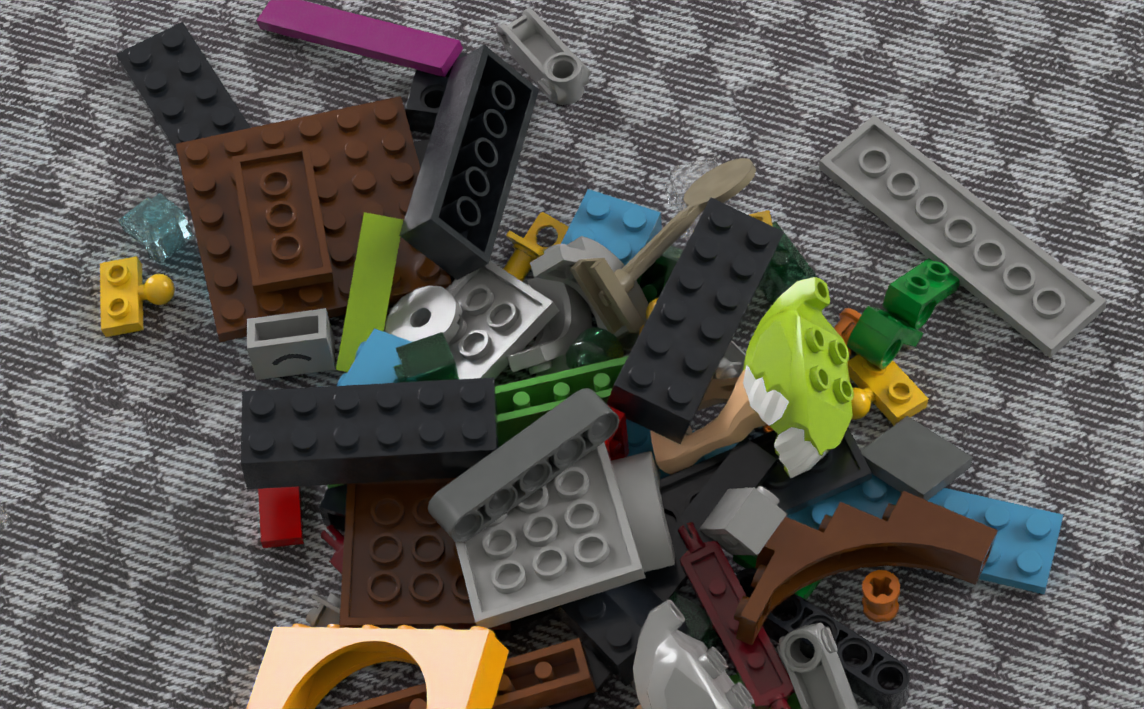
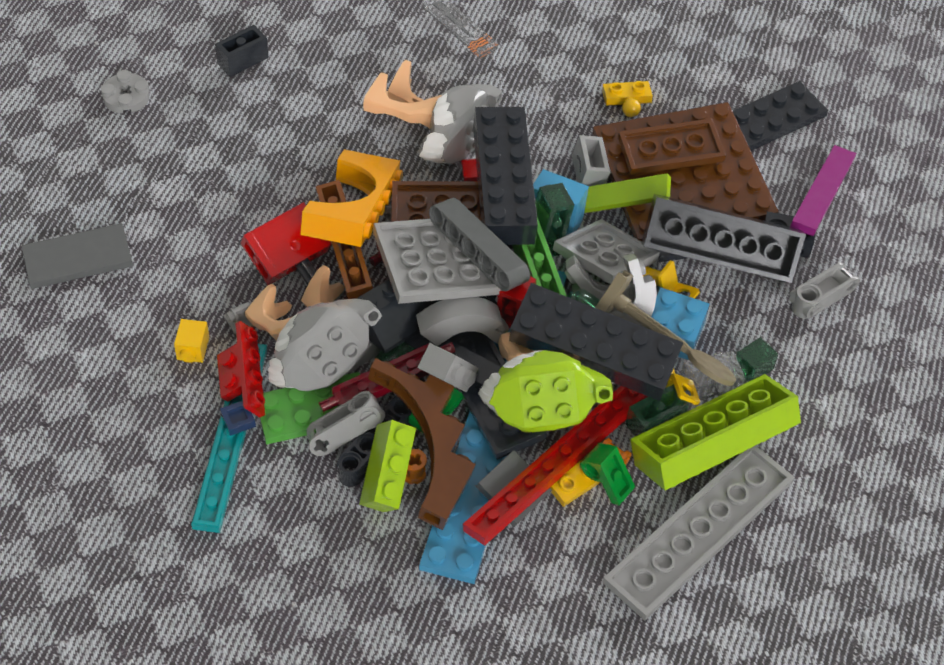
camera: 80 degrees right, 5 degrees down
(158, 227) = (669, 97): clear light blue brick -> none
(195, 545) = (446, 115): none -> animal
(421, 304) = (608, 224): light grey tile -> none
(671, 144) = (757, 359): none -> clear green brick
(814, 197) = (715, 431): none -> lime brick
(900, 619) = (387, 466): none -> lime brick
(919, 291) = (647, 496): green plate -> none
(922, 430) = (550, 467): none -> red plate

